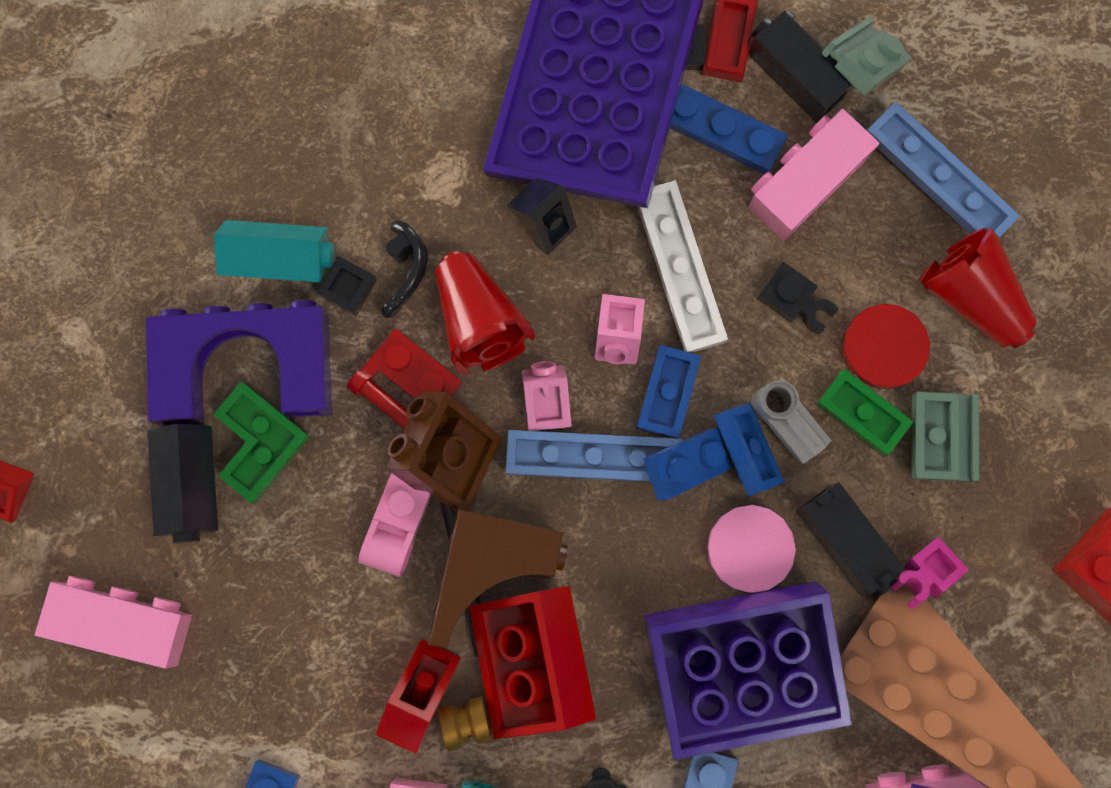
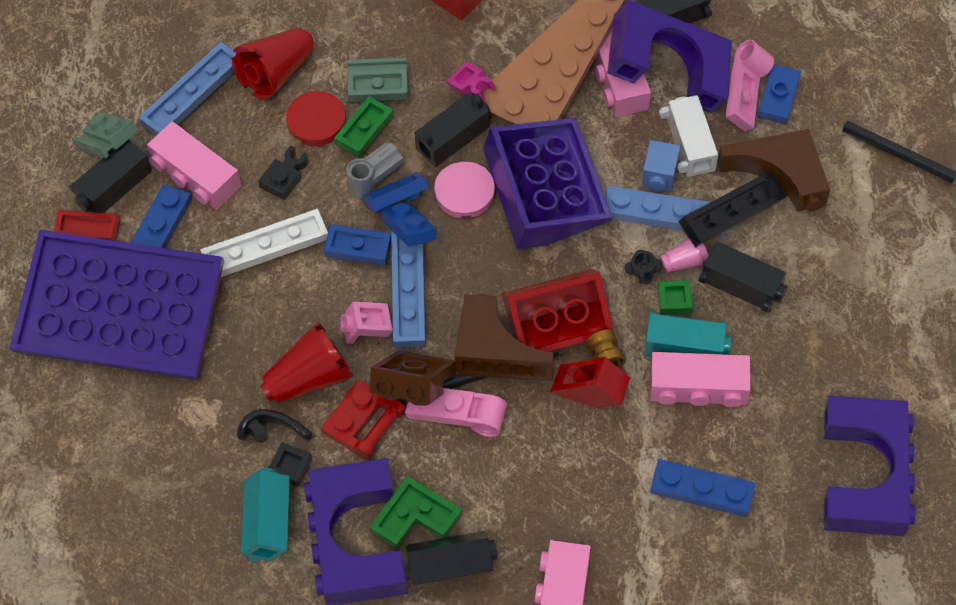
camera: 90 degrees left, 20 degrees down
(546, 212) = (227, 327): black slope -> none
(619, 329) = (313, 277): bright pink bracket -> none

